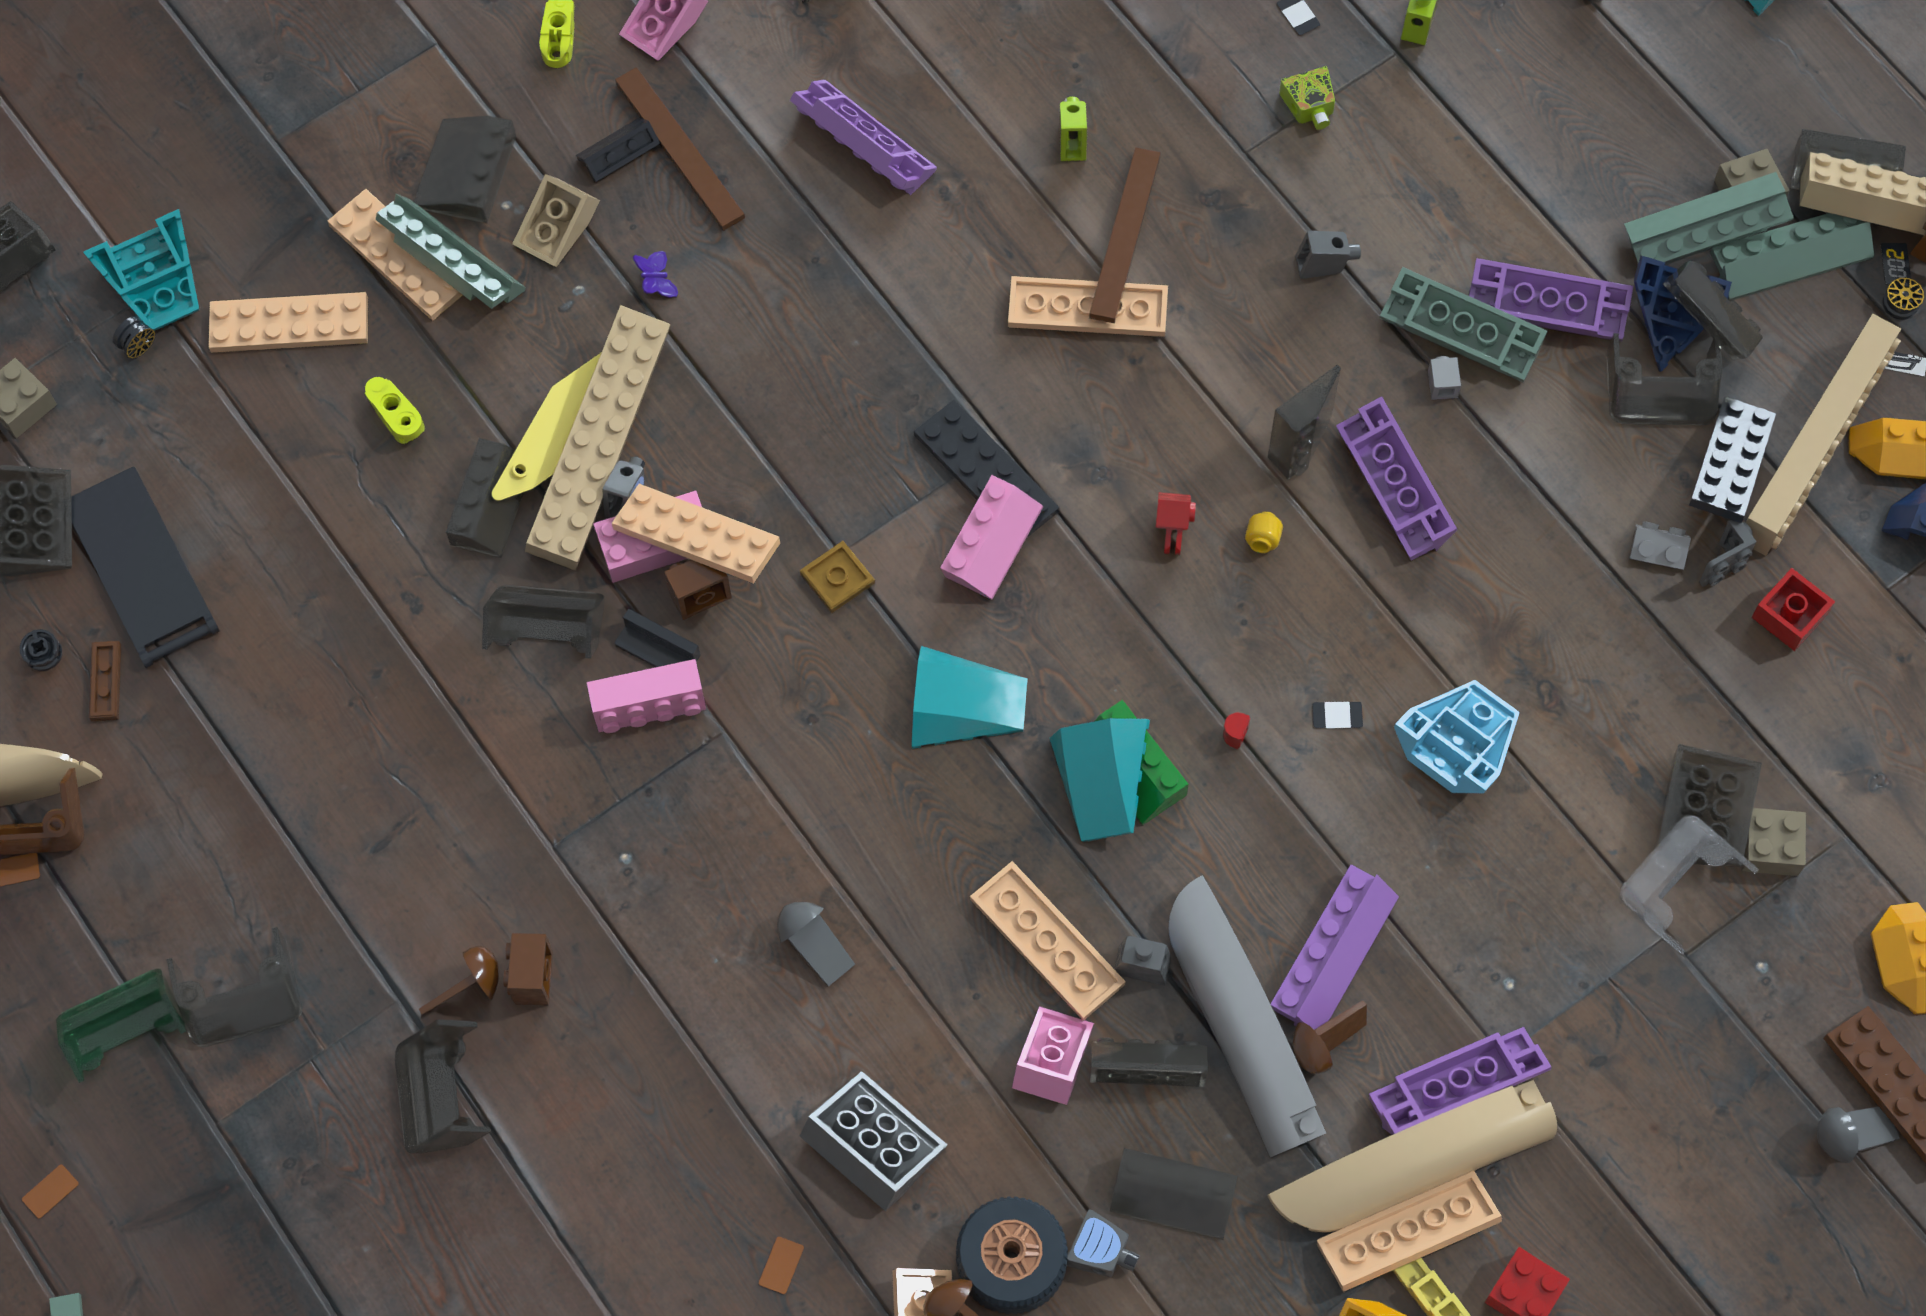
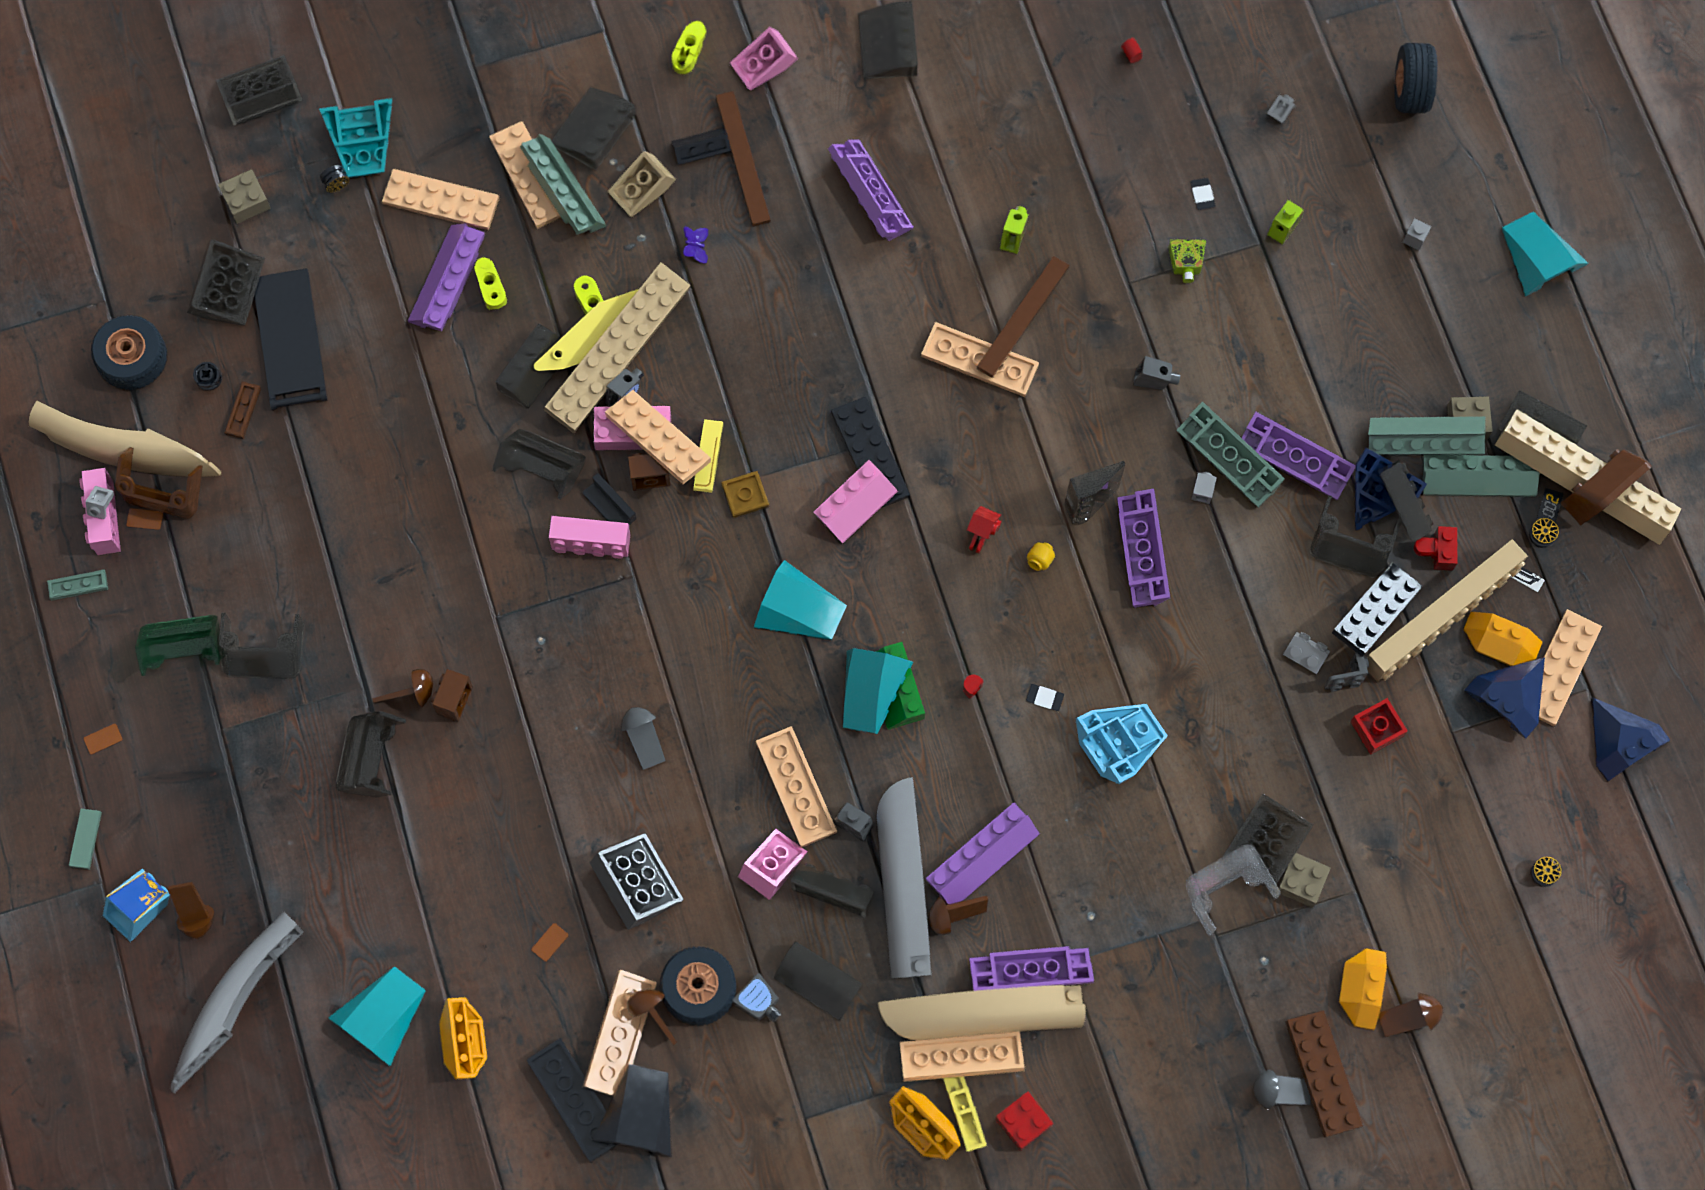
camera: 15 degrees right, 5 degrees up
(331, 419) = (447, 277): none -> medium lavender slope
(532, 385) = (588, 295): none -> neon yellow piece
(766, 518) = (710, 445): none -> light yellow slope
(1780, 357) = (1440, 548): none -> red brick

